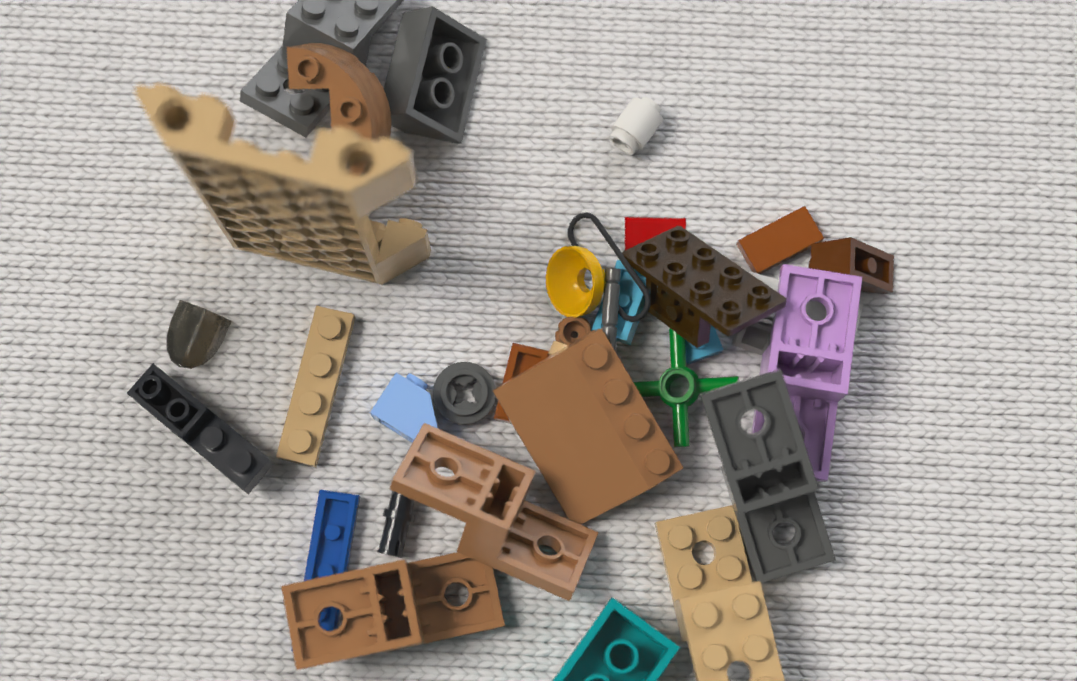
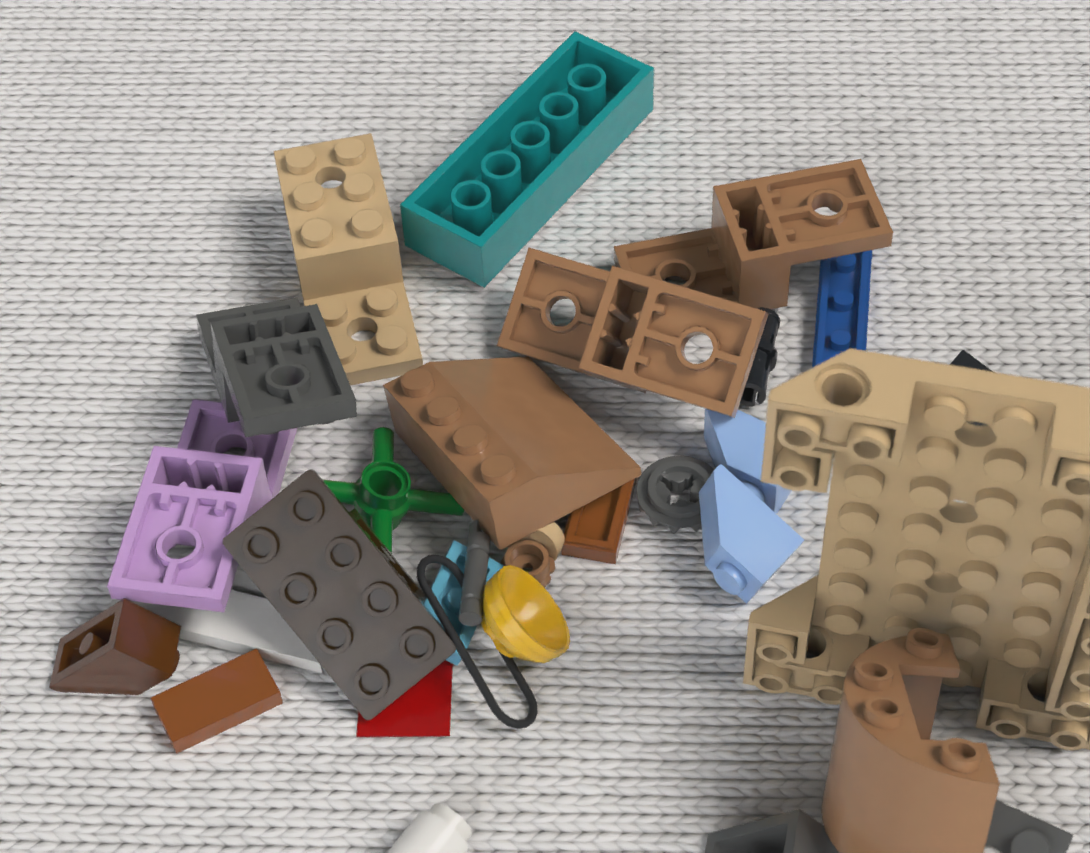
camera: 175 degrees left, 25 degrees down
(422, 337) = (742, 535): none -> light blue slope

